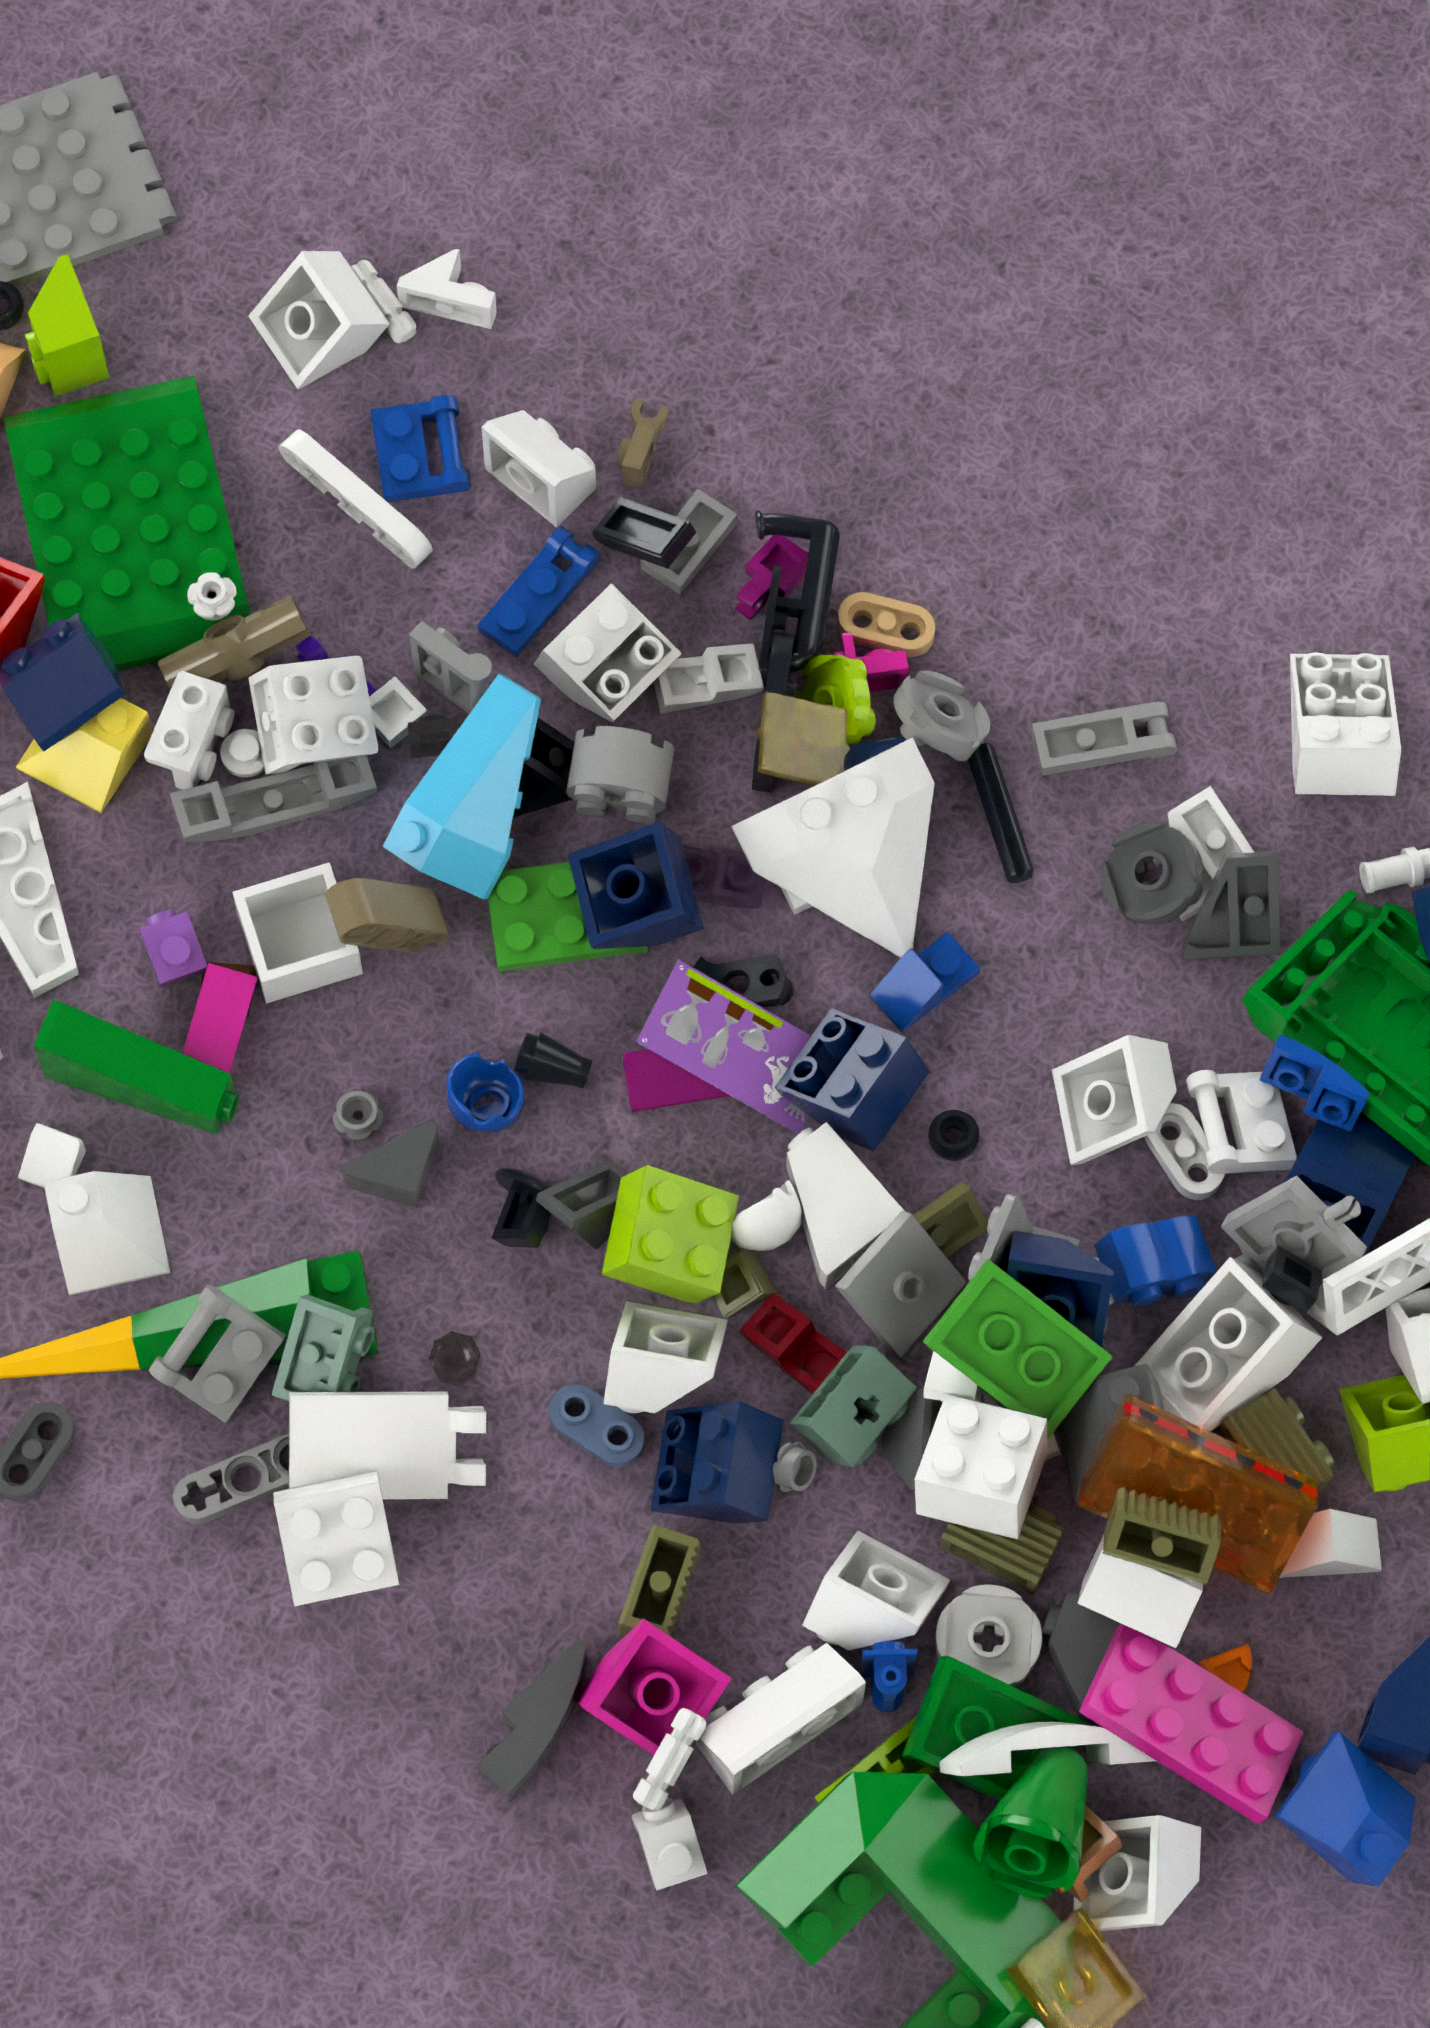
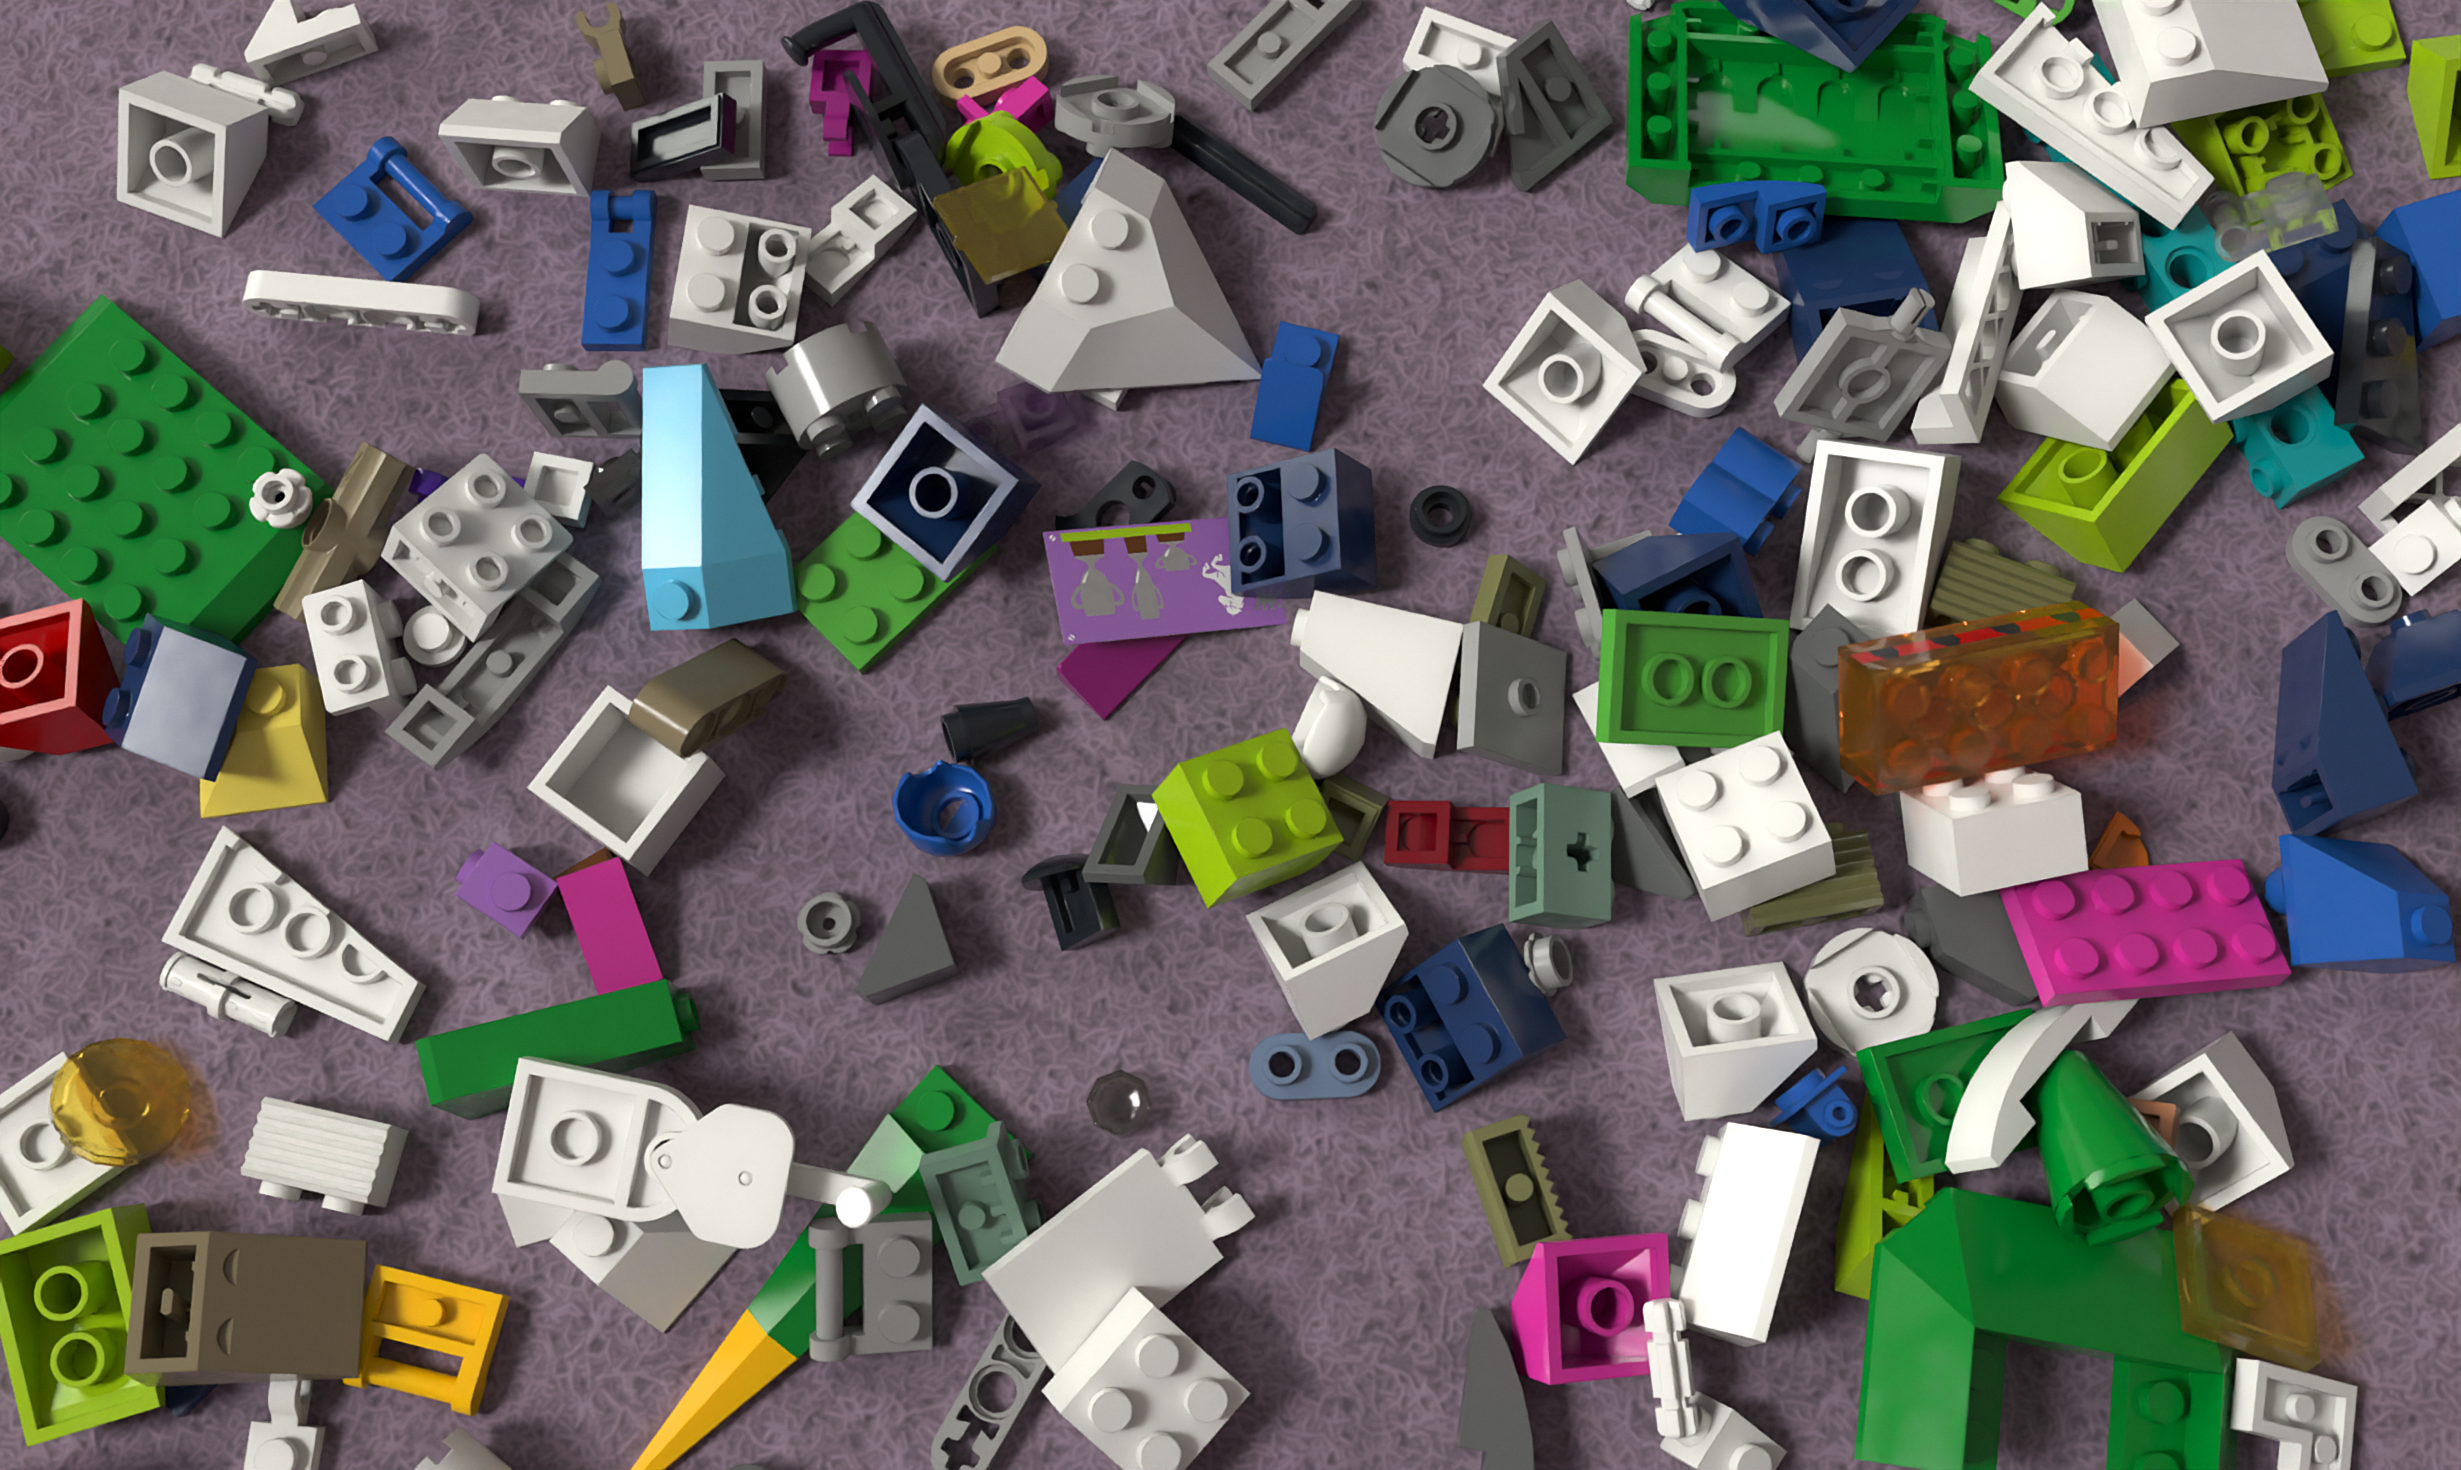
camera: 30 degrees left, 5 degrees up
(144, 1172) = (597, 1149): none -> white plate
(1162, 1536) = (2003, 765): olive brick -> none
(1291, 1279) = (1897, 418): black plate -> none

